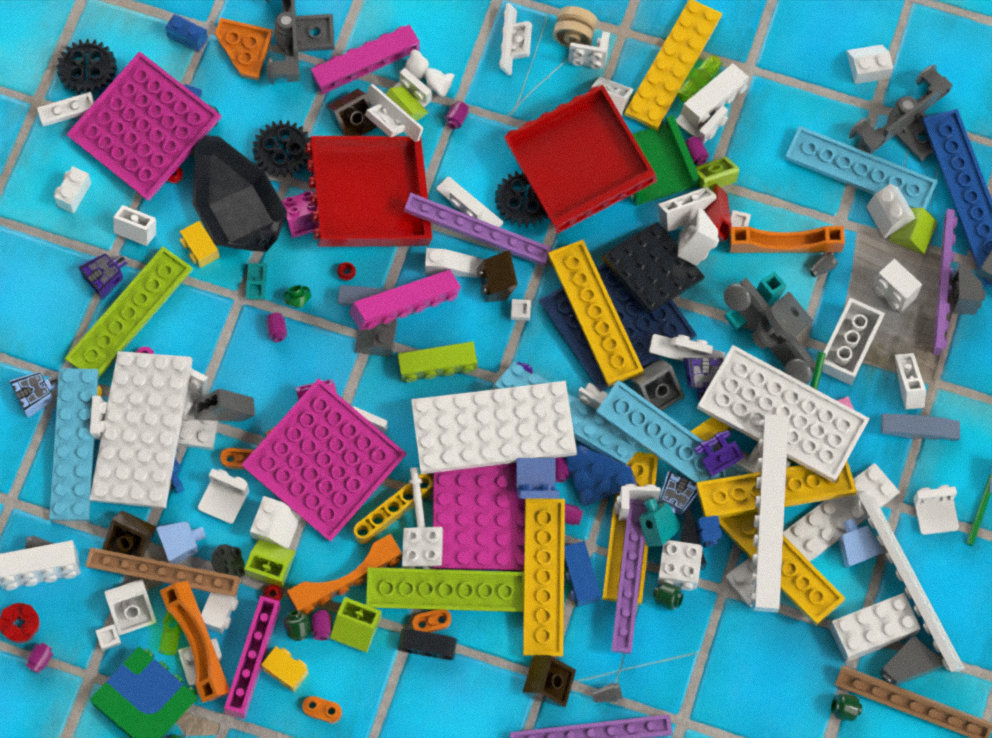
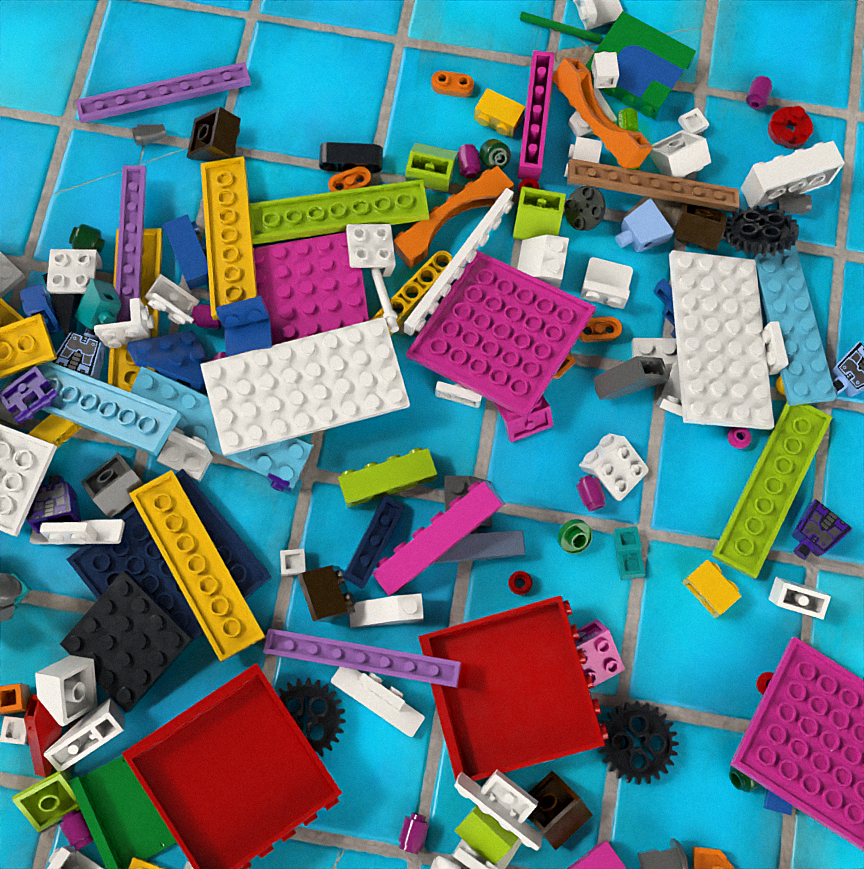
camera: 170 degrees right, 5 degrees up
(88, 502) = (761, 231): none -> black gear
(181, 683) = (605, 70): none -> white brick
(235, 198) = (679, 647): black panel -> none
(253, 347) = (615, 465): none -> white bracket
(342, 530) = (455, 267): none -> white plate
(455, 311) = (373, 542): none -> dark blue plate
(600, 522) = (169, 297): none -> white bracket

